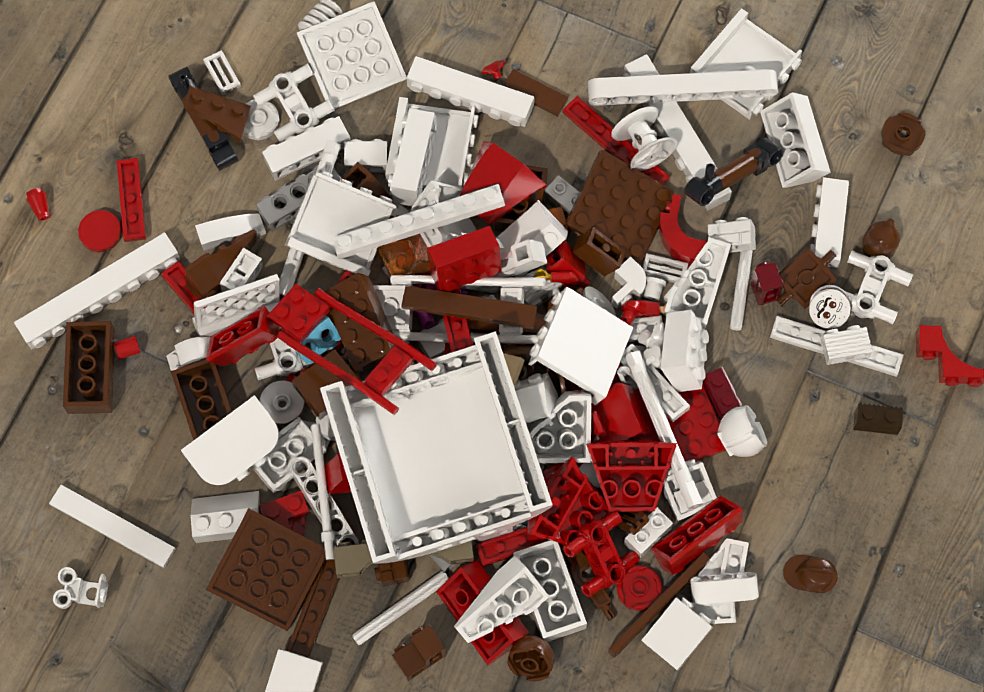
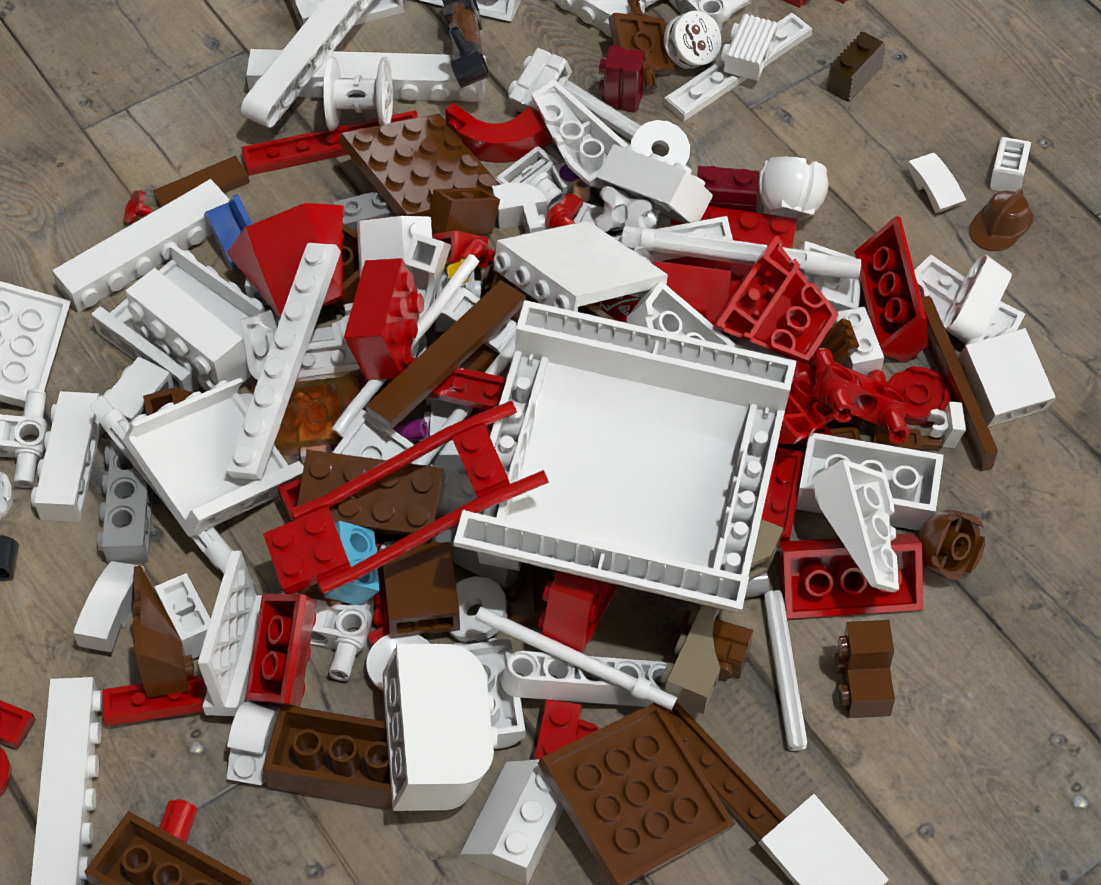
camera: 60 degrees left, 15 degrees down
(506, 130) = (227, 224): none -> blue panel
(623, 617) = (950, 423): none -> white tile
(740, 343) = (665, 134): none -> white tile
(813, 517) = (937, 180): none -> white slope
(848, 559) = (1010, 167): none -> white slope

